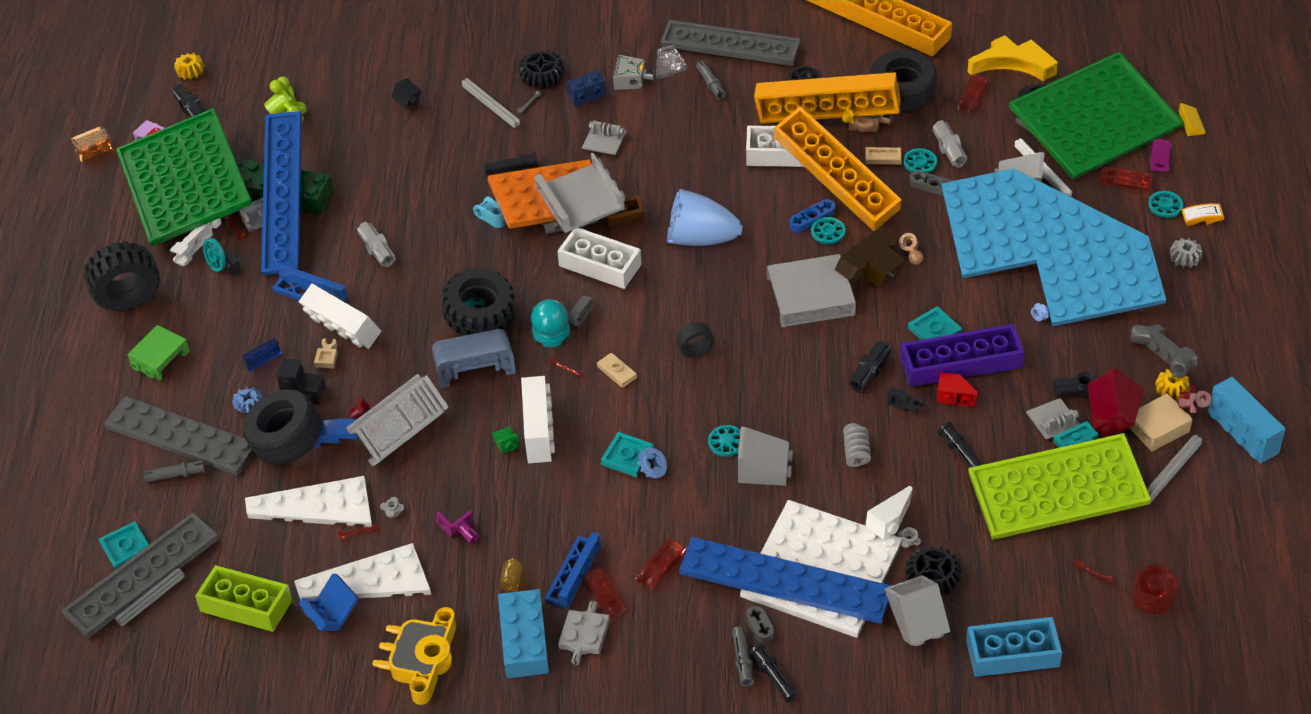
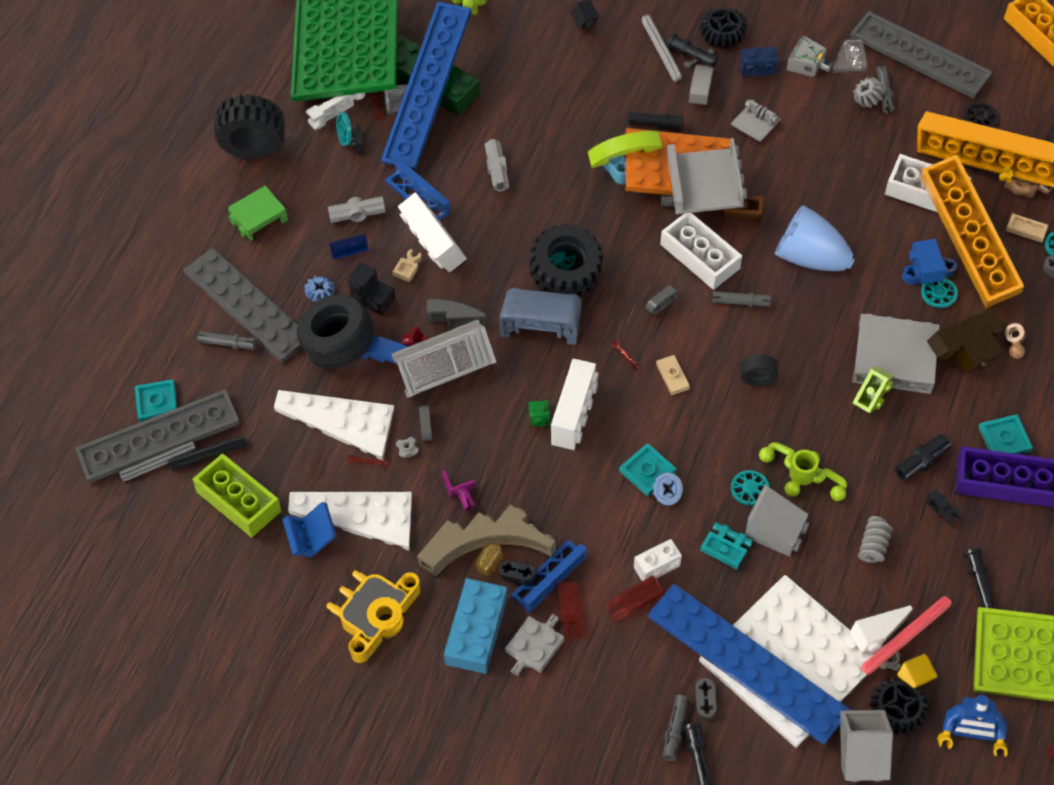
camera: 20 degrees right, 10 degrees up
(196, 574) = (207, 453): none -> black axle
(255, 321) = (356, 209): none -> light grey piece
(386, 380) = (453, 313): none -> dark grey slope
(401, 481) = (425, 423): none -> dark grey beam
(491, 189) = (623, 145): none -> lime slope
(513, 95) = (685, 47): none -> black pin
(520, 543) = (509, 529): none -> dark tan arch
(541, 122) = (701, 84): none -> light grey slope
(543, 577) = (518, 571): none -> black beam
(550, 323) = (626, 305): teal tile -> none
(653, 288) = (741, 298): none -> dark grey pin
(669, 524) = (657, 560): none -> white brick
(697, 85) = (868, 92): none -> light grey gear
(727, 498) = (723, 549): none -> teal plate
(769, 408) = (799, 477): none -> lime wheel
(804, 323) = (873, 389): none -> lime brick
(808, 205) = (927, 261): none -> blue brick
(915, 512) = (906, 635): none -> coral axle
(937, 536) = (917, 671): none -> yellow slope
(955, 390) = (999, 513): red slope -> none
(1004, 558) = (977, 720): none -> blue torso

